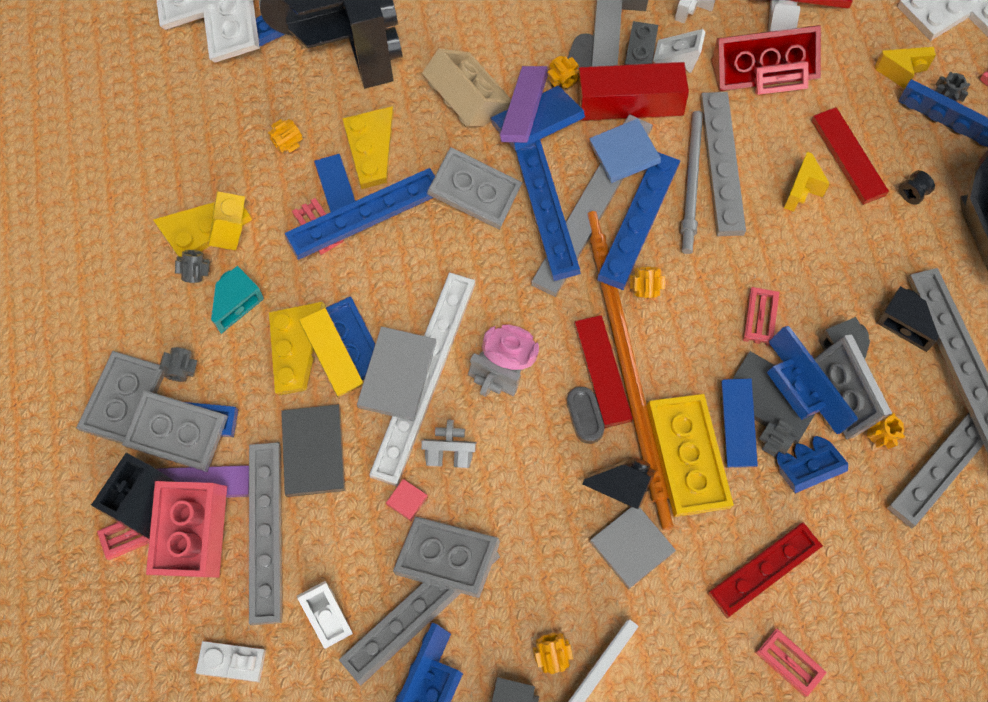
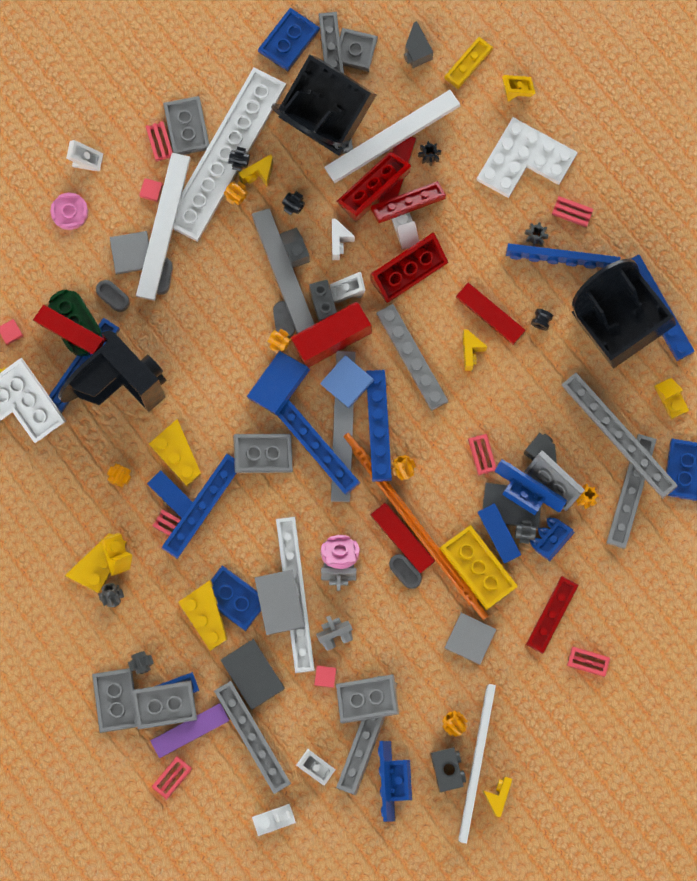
camera: 30 degrees left, 10 degrees up
(130, 494) = (169, 755): black slope -> none
(186, 529) = (208, 759): coral slope -> none
(233, 298) = (149, 602): teal slope -> none
(331, 352) = (233, 609): yellow tile -> none
(466, 86) = (220, 381): tan slope -> none
(524, 104) = (265, 378): medium lavender tile -> none
(623, 481) = (447, 604): black slope -> none
(689, 224) = (411, 413): light grey bar -> none
(759, 80) = (422, 274): coral tile -> none
(901, 64) = (495, 230): yellow slope -> none
(909, 319) = (571, 414): black slope -> none

